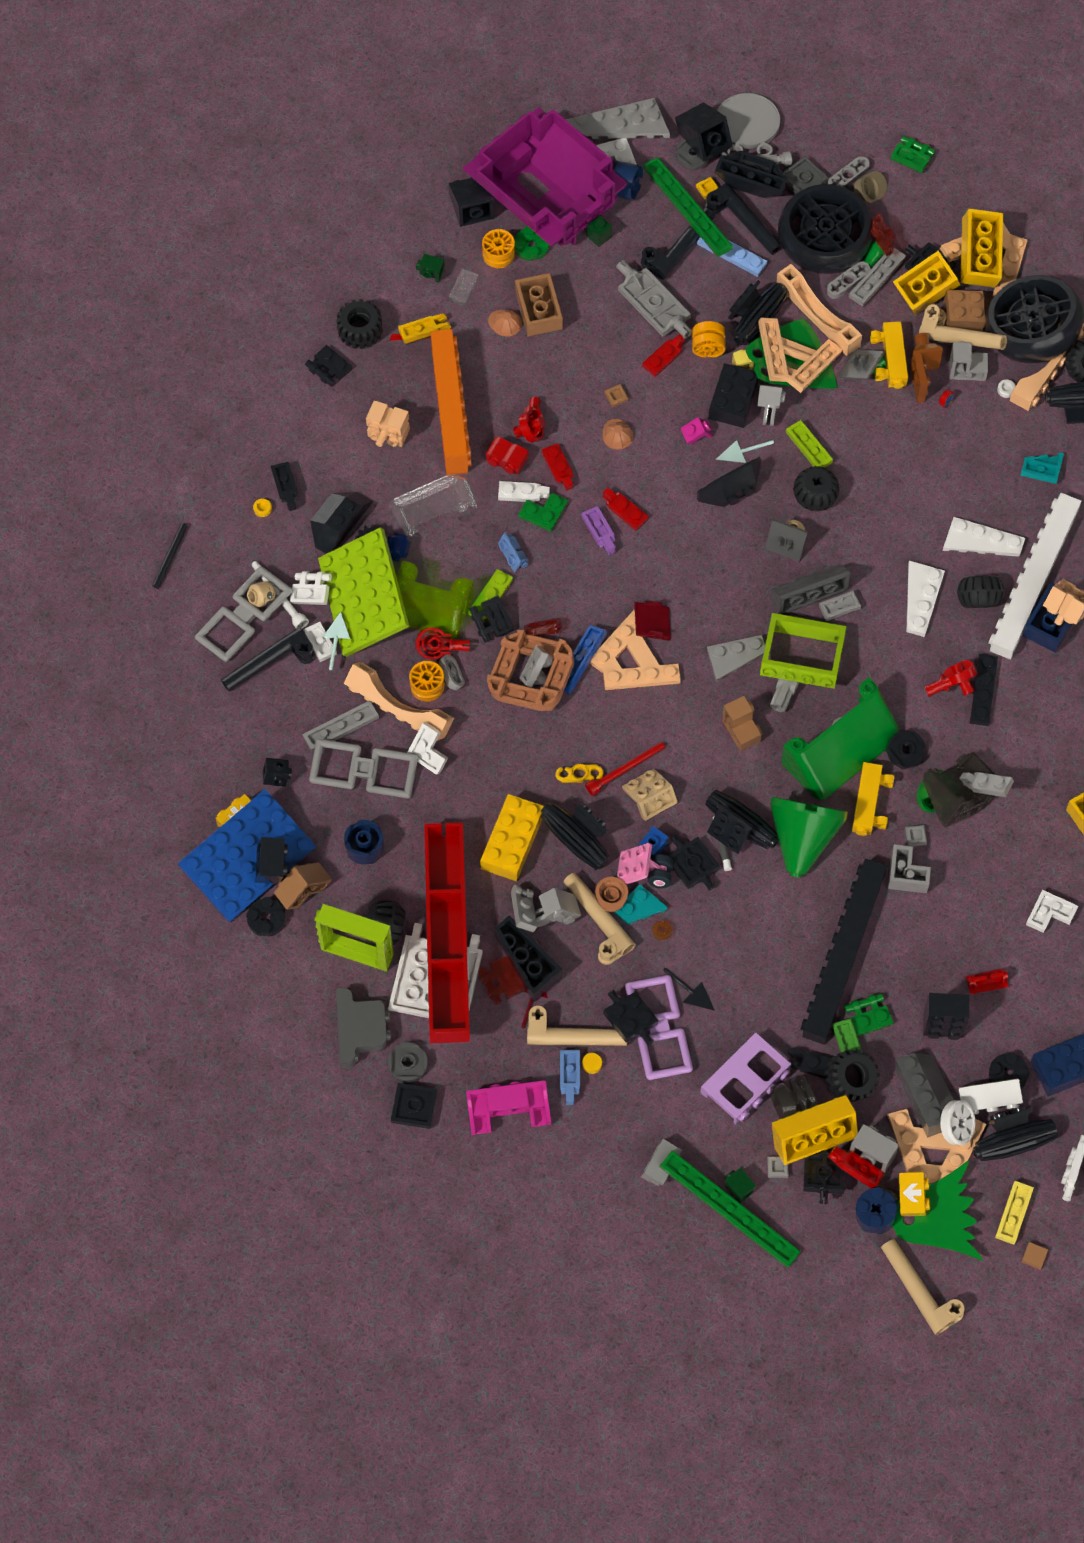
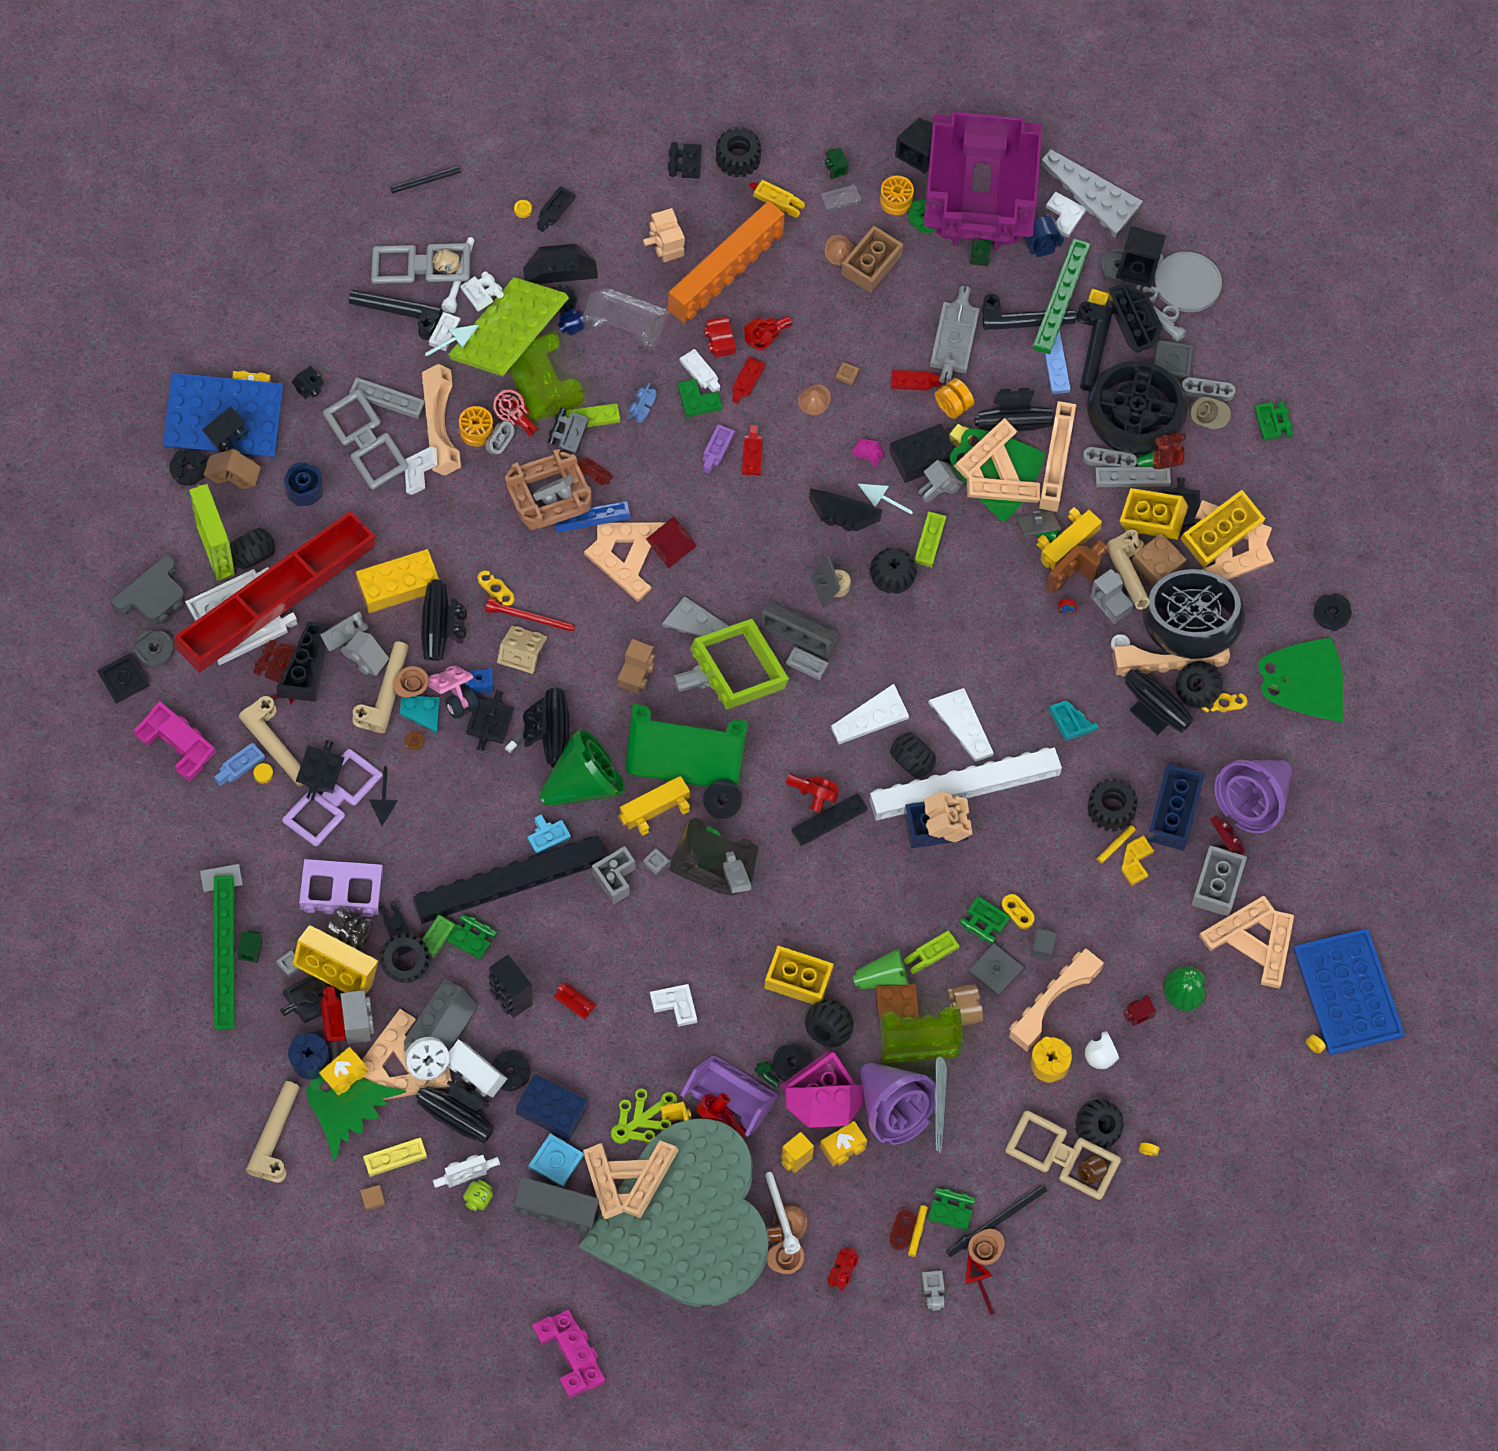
camera: 45 degrees right, 0 degrees up
(828, 895) = (547, 835): none -> medium azure hinge

